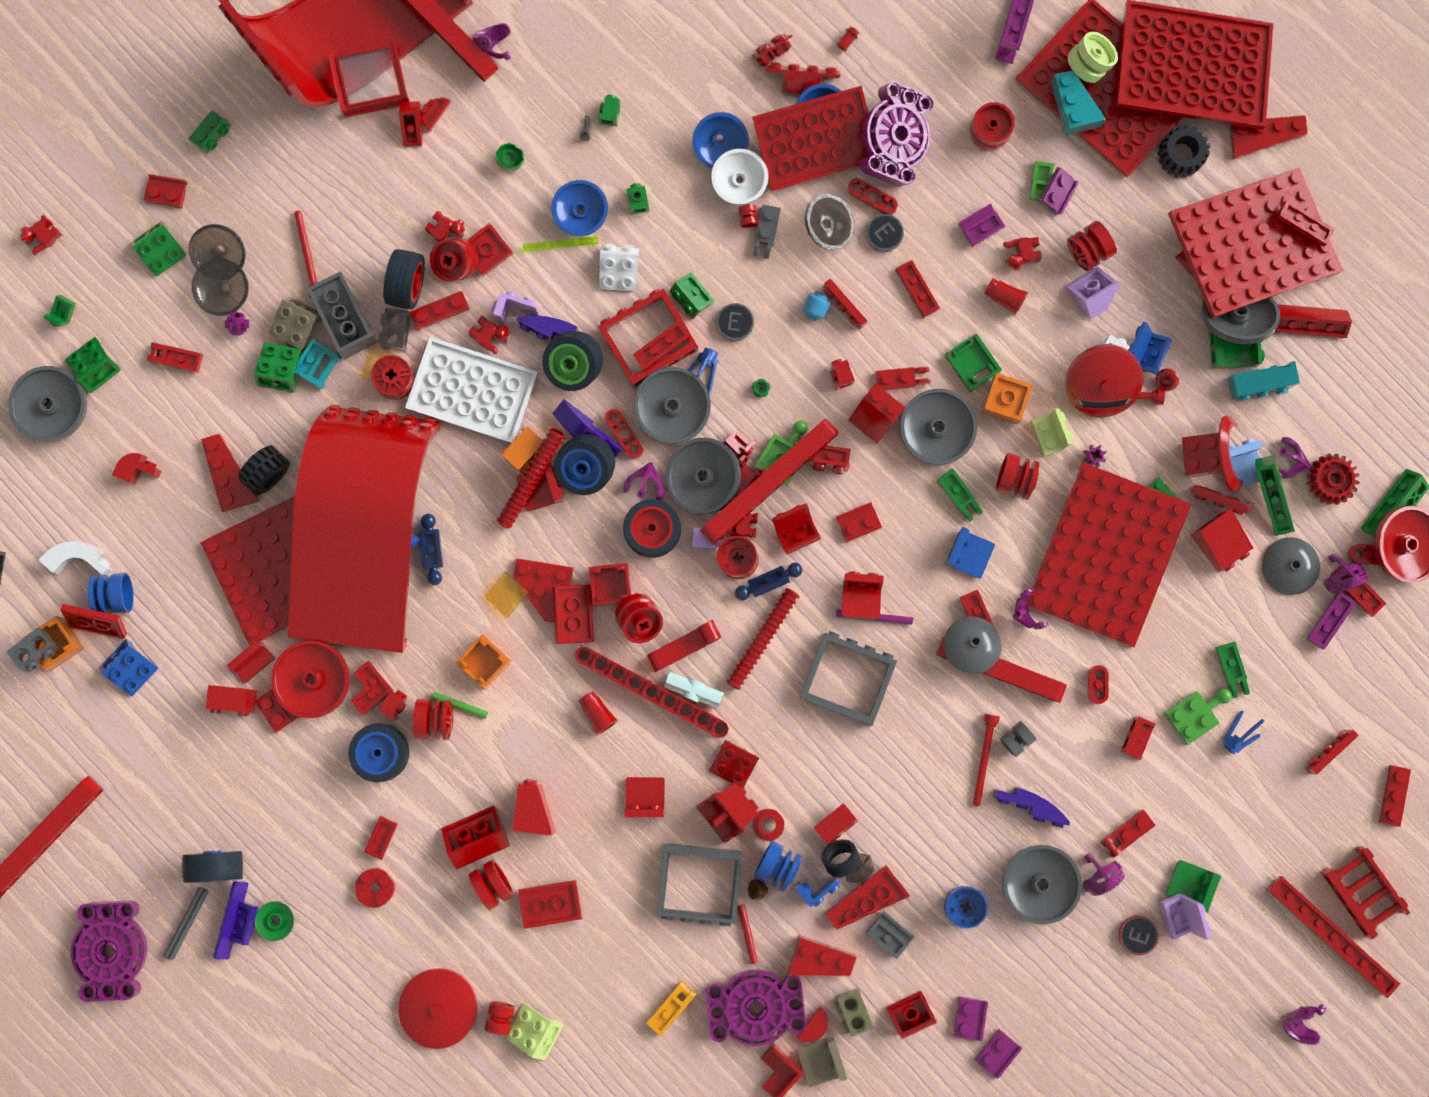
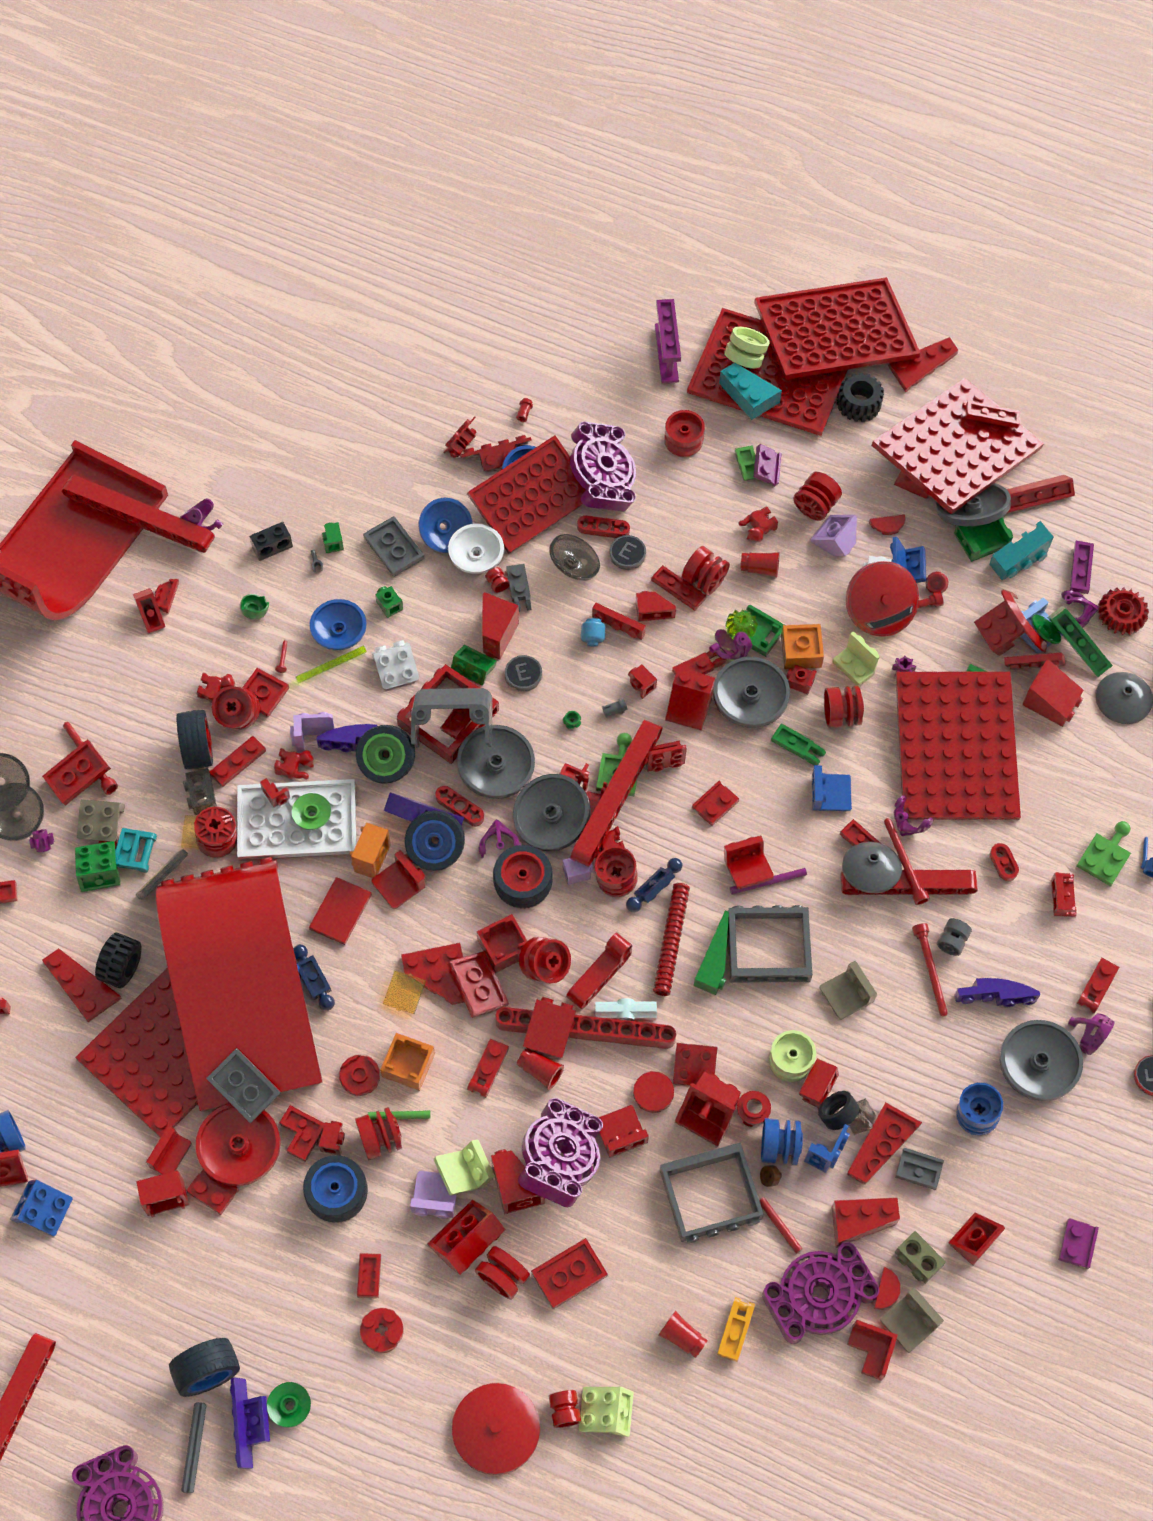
camera: 25 degrees left, 20 degrees down
(289, 267) = (76, 772): none -> red plate
(330, 401) = (161, 874): none -> clear smoke tile
(330, 633) = (243, 1085): none -> dark grey plate
(341, 315) = (145, 796): dark grey slope -> none
(368, 79) = (96, 585): piece -> none
(439, 655) = (359, 1075): none -> red tile
(455, 358) = (273, 795): none -> red bracket
(462, 790) = (432, 1196): none -> lavender bracket
(479, 494) = (340, 910): none -> red tile
(482, 382) = (311, 803): none -> bright green dish
(494, 779) = (465, 1169): none -> yellowish green bracket
(512, 230) = (281, 668): none -> red pin
(530, 478) = (387, 870): red piece -> none
(550, 93) = (271, 541): none -> black brick
(553, 693) = (488, 1067): none -> red plate
(599, 798) = (566, 1131): none -> magenta piece
(618, 682) = (549, 1027): none -> red panel
(623, 996) = (683, 1335): none -> red plant
(652, 335) = (475, 699): none -> dark grey windscreen
(664, 142) = (393, 546): none -> dark grey plate
(688, 772) = (653, 1091): none -> red tile
(706, 358) = (512, 712): blue plant -> none
(728, 266) = (499, 623): none -> red slope
(789, 679) = (713, 965): none -> green slope
(795, 528) = (658, 827): red bracket -> none
(805, 391) = (614, 708): none -> dark grey pin
(833, 795) = (792, 1044): none -> yellowish green wheel
(883, 300) = (653, 607): none -> red slope
(898, 751) = (848, 991): none -> dark tan bracket
(939, 366) = (740, 645): none -> magenta helmet
(949, 286) = (705, 570): none -> red wheel
(959, 362) = (741, 622): none -> clear neon green gear
(970, 1018) = (1035, 1219): magenta plate -> none
(981, 225) = (712, 516): magenta plate -> none
(991, 436) = (801, 679): none -> red brick
(1004, 689) = (919, 895): none -> red piece
(1149, 299) = (888, 525): none -> red tile
(1232, 668) = (1118, 802): green hinge -> none
(1246, 472) = (1046, 629): none -> green dish
(1315, 417) = (1082, 567): none -> magenta plate

